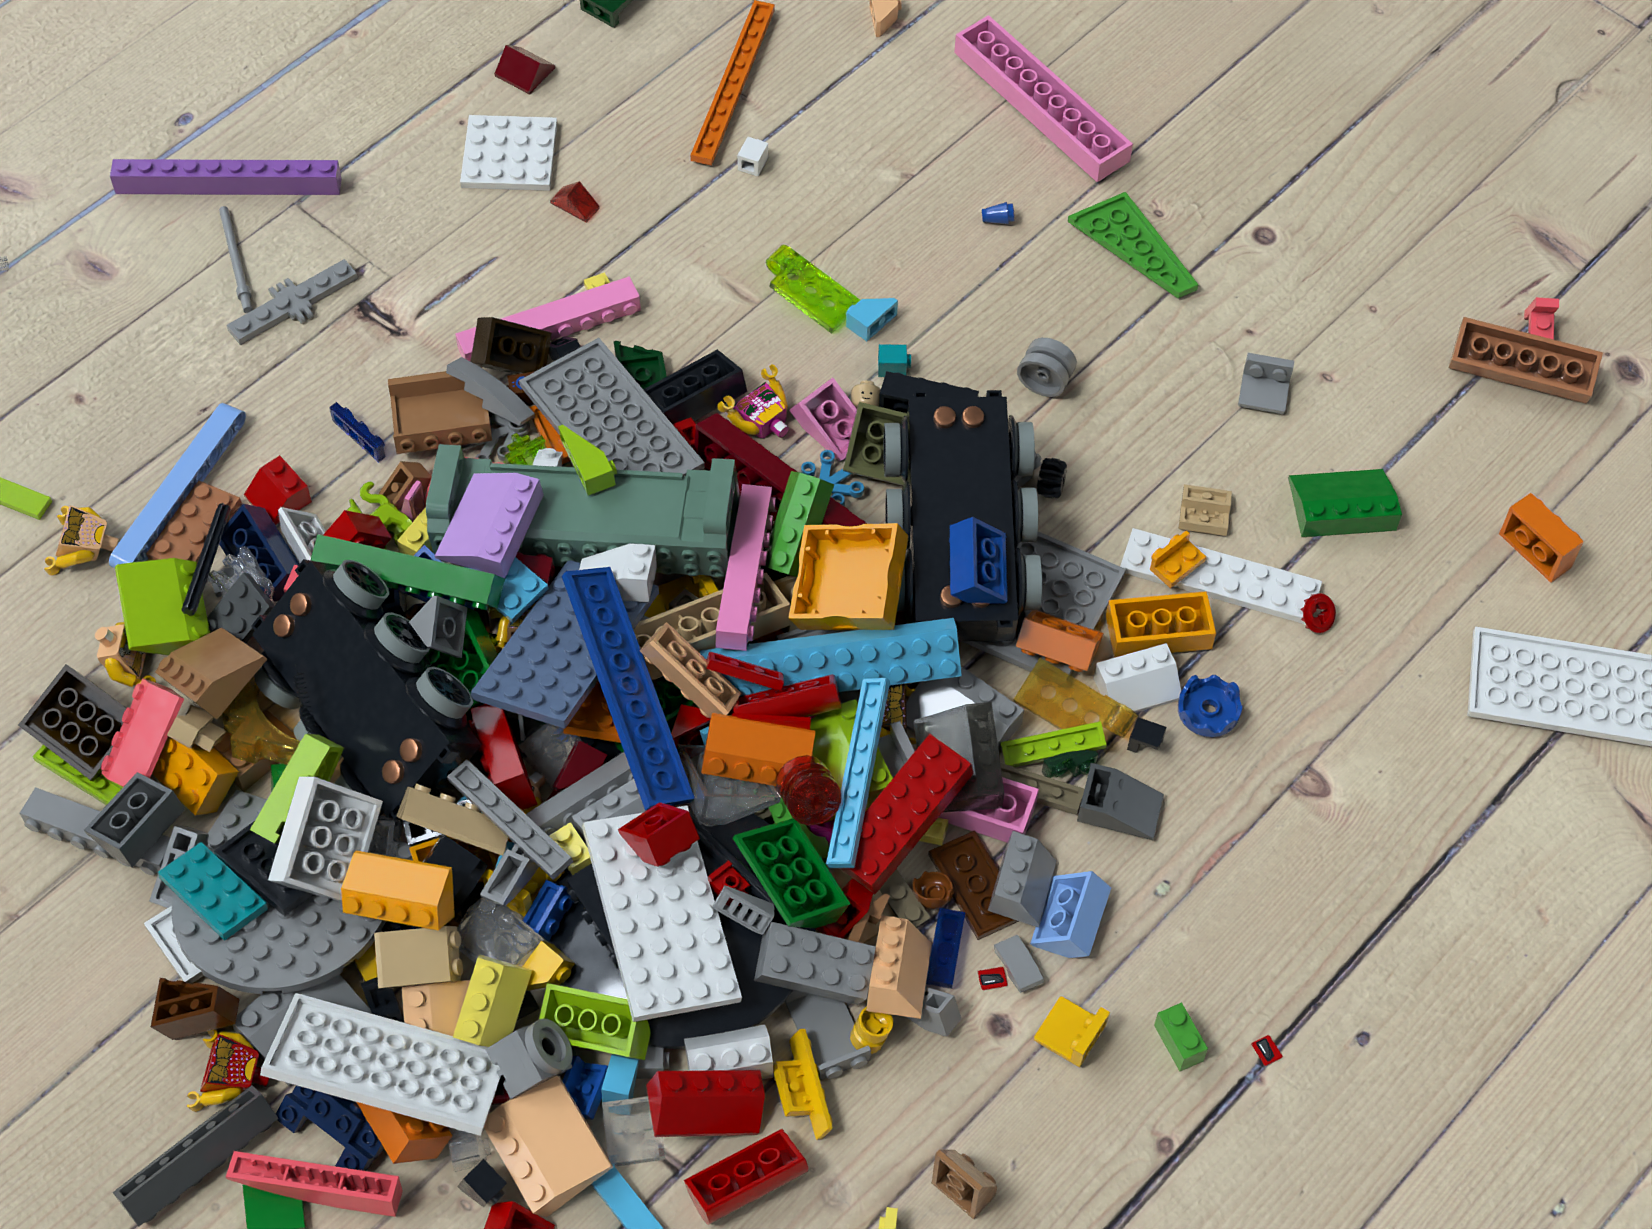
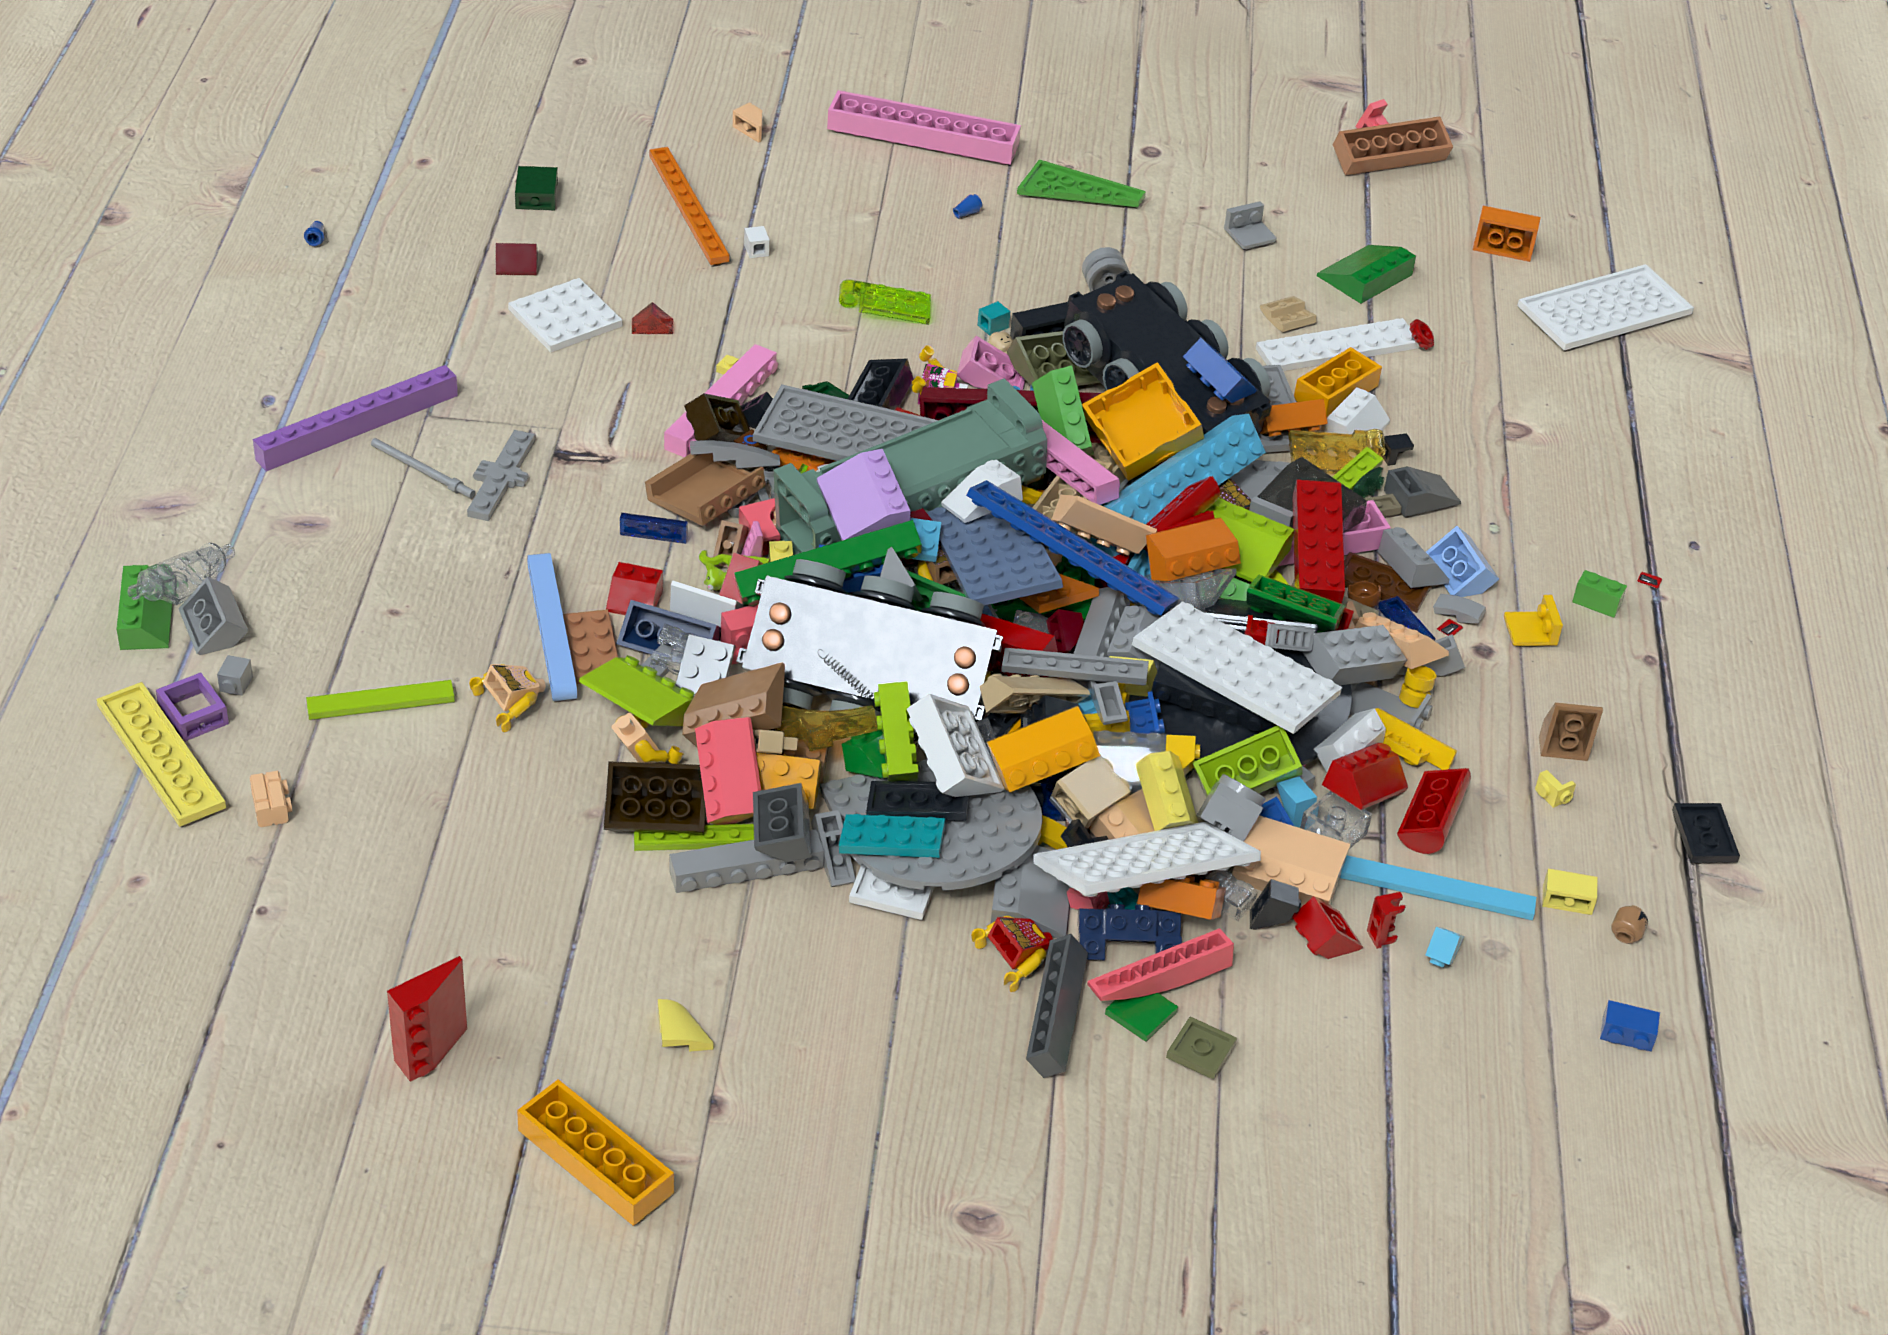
camera: 40 degrees left, 15 degrees down
(192, 1008) = (957, 916): reddish brown wedge -> none
(206, 559) = (640, 648): black axle -> none
(589, 462) = (896, 428): lime slope -> none
(660, 833) = (1194, 614): red slope -> none
(744, 671) = (1137, 504): red tile -> none
(808, 790) = (1252, 552): clear red wheel -> none
(858, 773) = (1271, 529): medium azure tile -> none
(870, 316) = (947, 300): medium azure slope -> none
(1176, 560) = (1308, 343): light orange bracket -> none
(1211, 691) = (1413, 415): blue plate -> none

